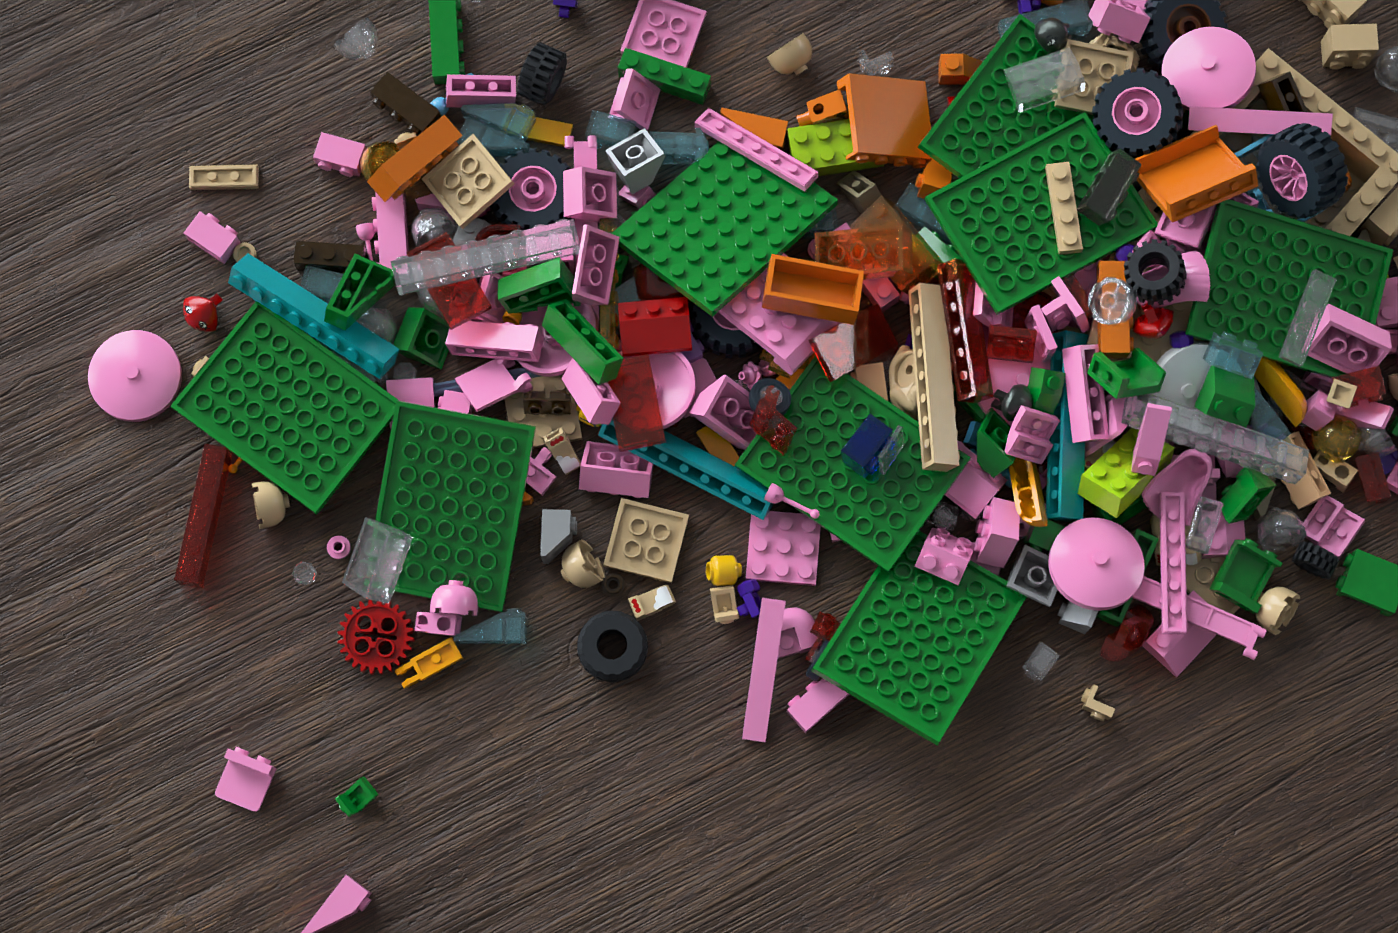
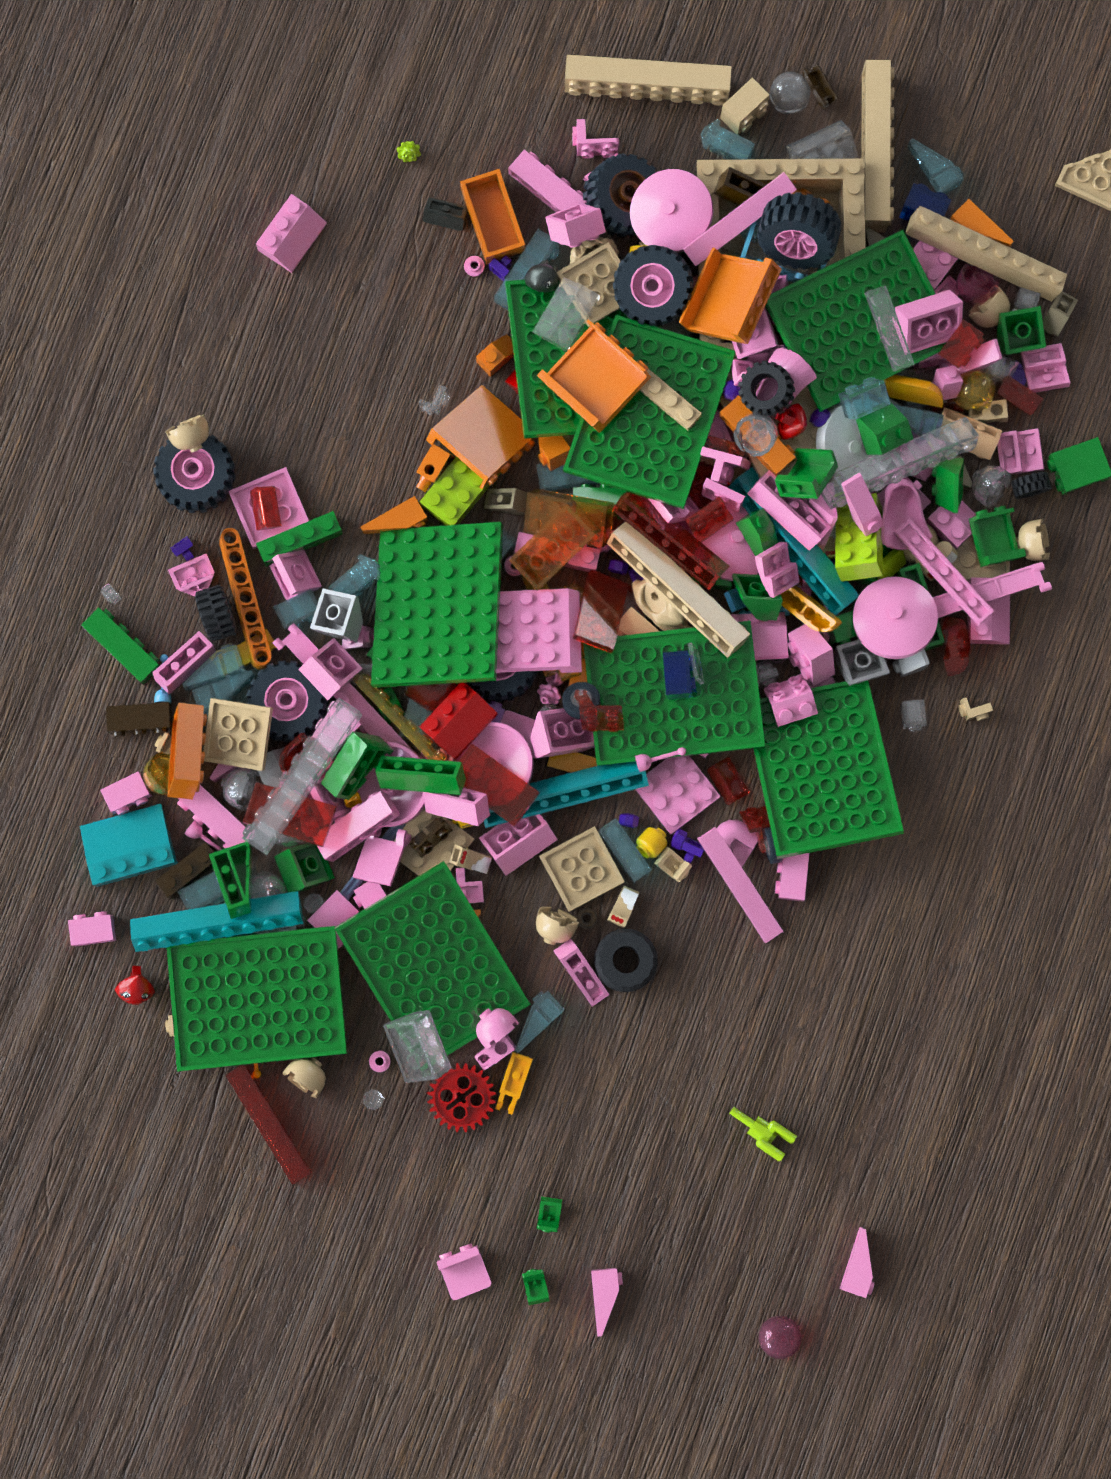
camera: 45 degrees left, 5 degrees up
(135, 376) = (128, 1072): bright pink dish -> none
(223, 177) = (58, 881): tan tile -> none
(242, 249) = (122, 921): tan tile -> none
(290, 846) = (535, 1286): none -> green bracket
(302, 197) = (127, 845): none -> teal slope
(358, 41) = (64, 702): clear cylinder -> none
(554, 31) = (193, 575): none -> bright pink slope
(556, 532) = (518, 918): light grey slope -> none
(567, 623) = (581, 972): none -> bright pink slope
(580, 75) = (245, 588): none -> orange beam
(595, 266) = (383, 716): bright pink slope -> none
(595, 894) = (765, 1133): none -> lime plant
(659, 28) = (265, 508): none -> clear red slope
(694, 556) = (624, 850): none -> clear light blue brick
(721, 535) = (629, 820): none -> dark purple tile
(756, 149) = (412, 535): bright pink tile -> none
(792, 56) = (374, 447): tan cylinder -> none
(812, 289) = (545, 601): orange piece -> none
(834, 578) = (728, 781): none -> clear red slope
(902, 323) = (618, 566): none -> dark purple tile
(1012, 401) = (745, 557): pearl dark grey piece -> none
(1022, 146) = (596, 377): none -> orange panel
(1109, 187) = (681, 355): clear smoke brick -> none
(1136, 519) = (892, 563): none -> lime tile
(1204, 525) = (942, 528): clear brick -> none
(1306, 59) = (726, 143): none -> clear light blue piece
(1341, 393) = (955, 359): tan tile -> none

